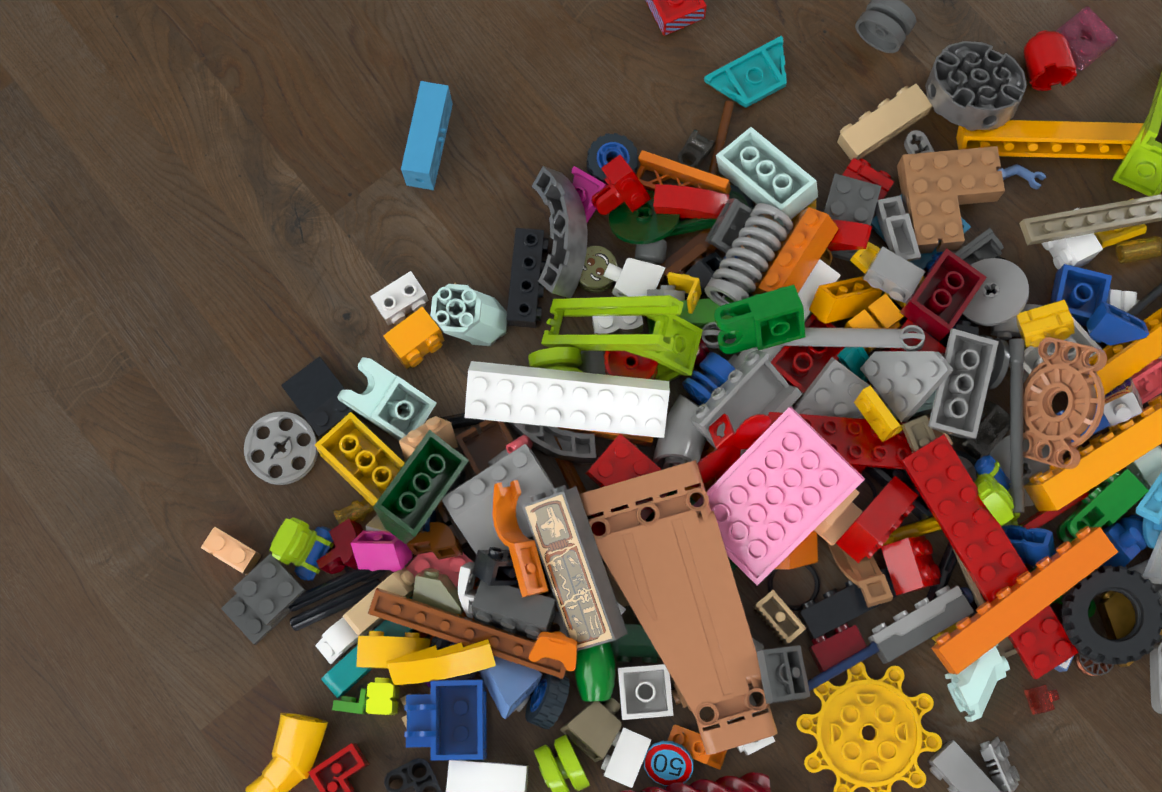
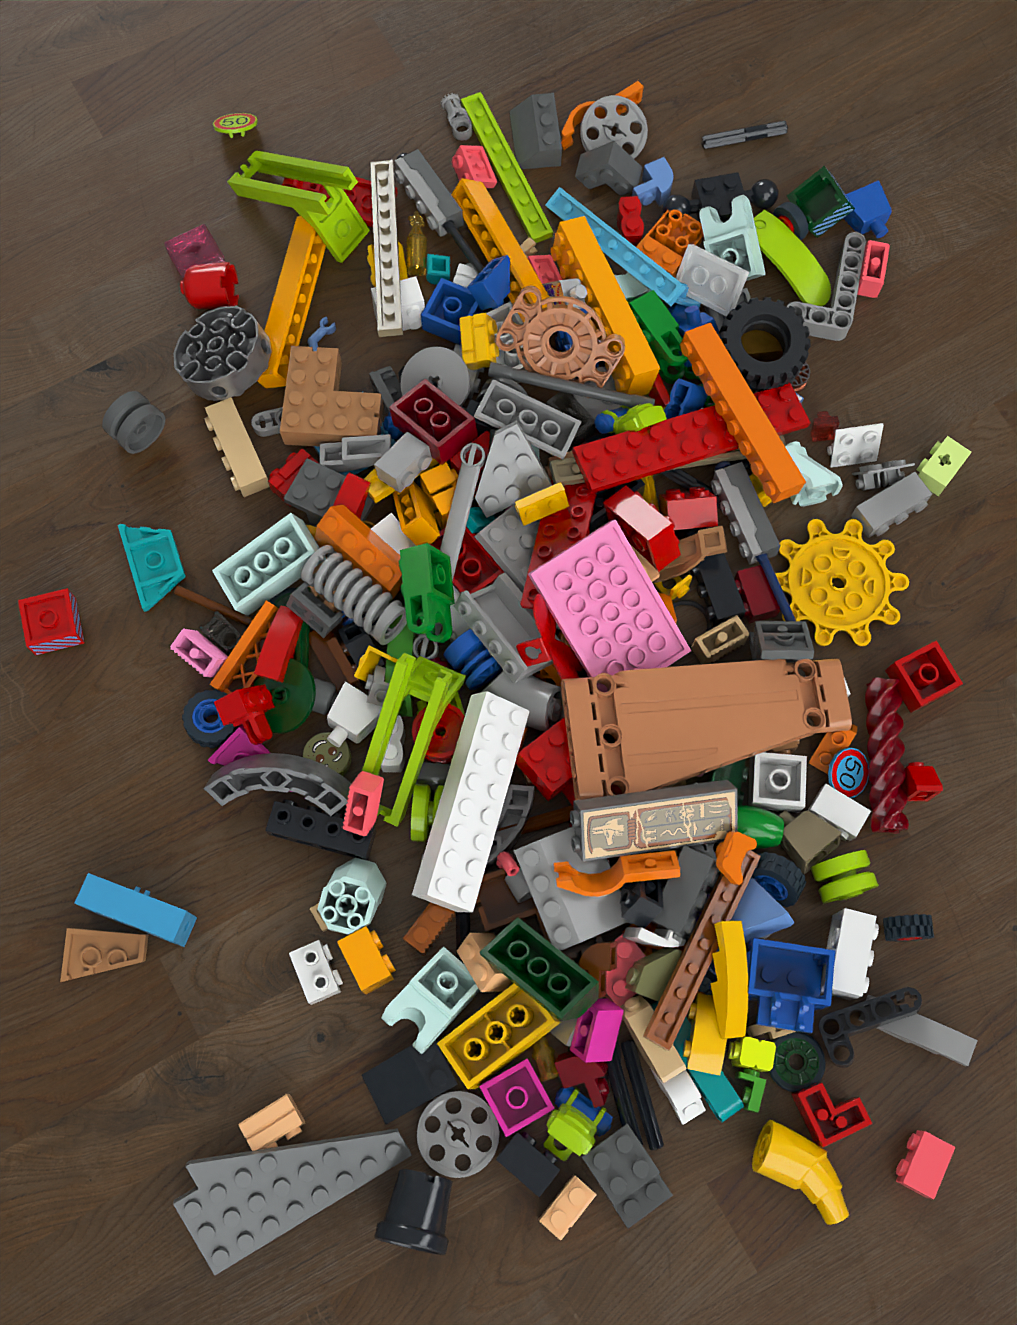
camera: 85 degrees left, 5 degrees down
(207, 422) = (417, 1213): none -> black piece
(208, 292) = (266, 1192): none -> wing
(262, 511) = (529, 1164): none -> black brick
(267, 288) = (272, 1124): none -> light nougat brick
(315, 491) = (516, 1097): none -> dark pink brick
(369, 743) = (812, 1067): none -> dark green wheel
(390, 114) = (99, 951): none -> medium nougat wing
(449, 386) = (428, 928): none -> dark orange brick
(551, 304) = (363, 803): none -> coral brick
(670, 134) = (199, 652): none -> bright pink brick
(825, 570) = (678, 590): none -> yellow bracket
(1024, 733) = (855, 445): none -> white hinge
(1127, 273) = (437, 268): none -> teal brick

